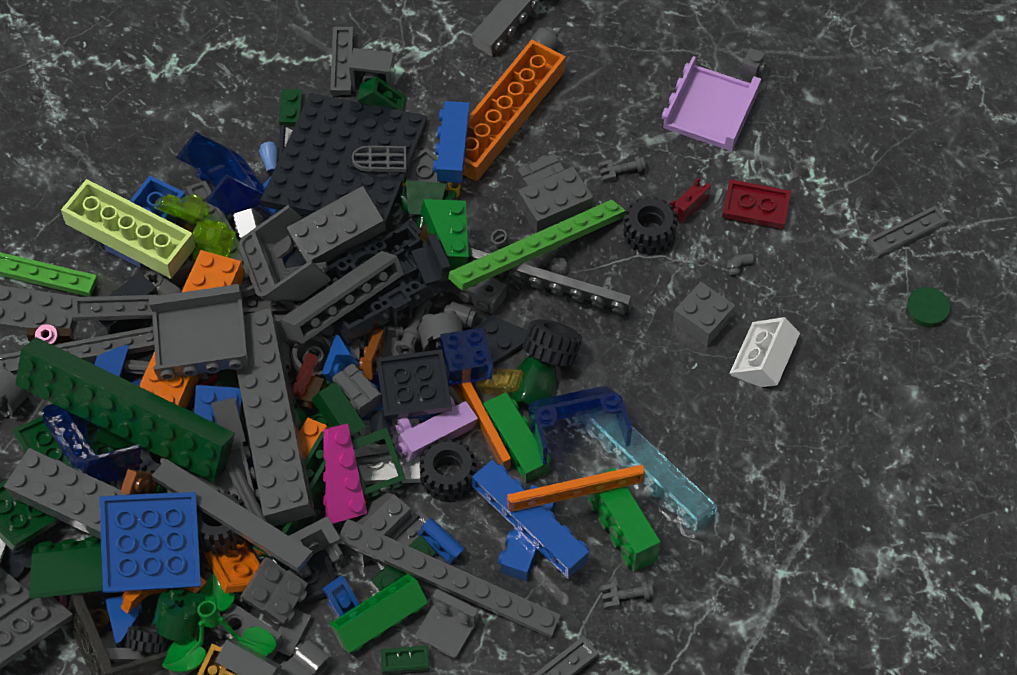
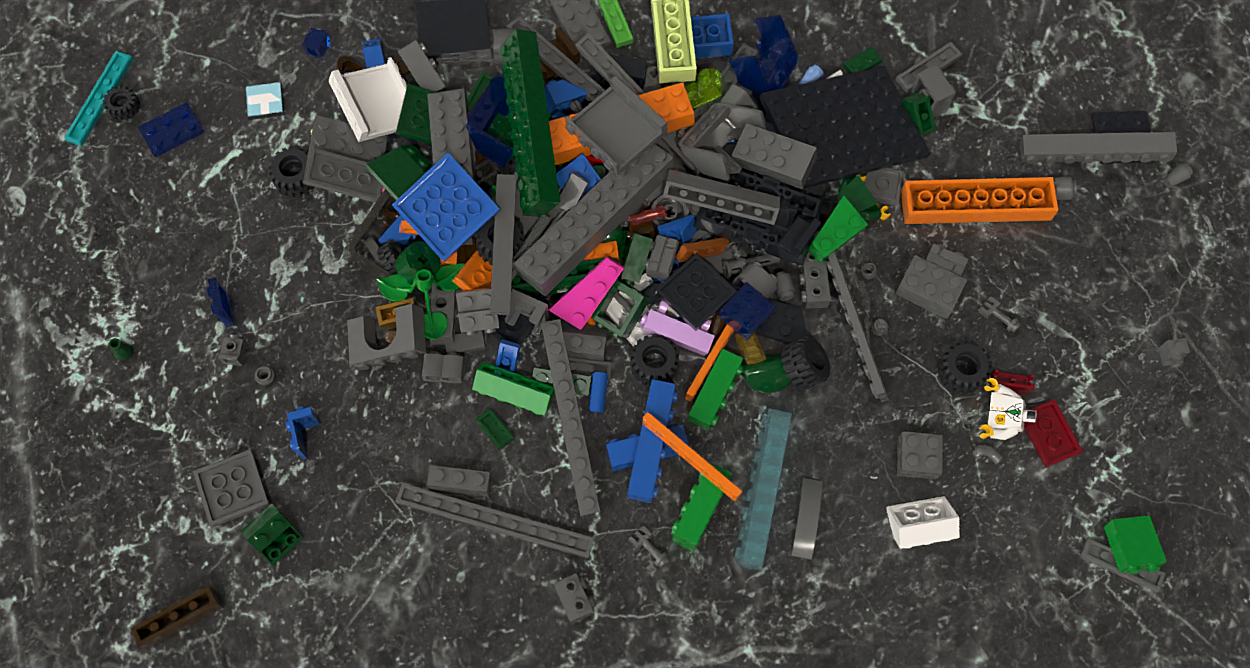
camera: 55 degrees right, 10 degrees up
(52, 333) = (563, 45): bright pink plate -> none
(138, 483) = (485, 170): dark orange plate -> none
(188, 208) = (718, 54): clear neon green plate -> none
(387, 154) = (862, 153): dark grey window -> none
(447, 624) = (537, 440): dark grey bracket -> none
(452, 141) = (914, 183): blue brick -> none
(536, 245) = (877, 298): bright green plate -> none
(546, 412) = (783, 426): clear blue windscreen -> none
(696, 441) = (807, 518): none -> dark grey slope
(710, 106) = (1111, 343): lavender panel -> none
(715, 221) = (1006, 413): none -> white torso
(898, 208) = (1135, 544): none -> green brick
(928, 306) = (1065, 623): dark green tile -> none

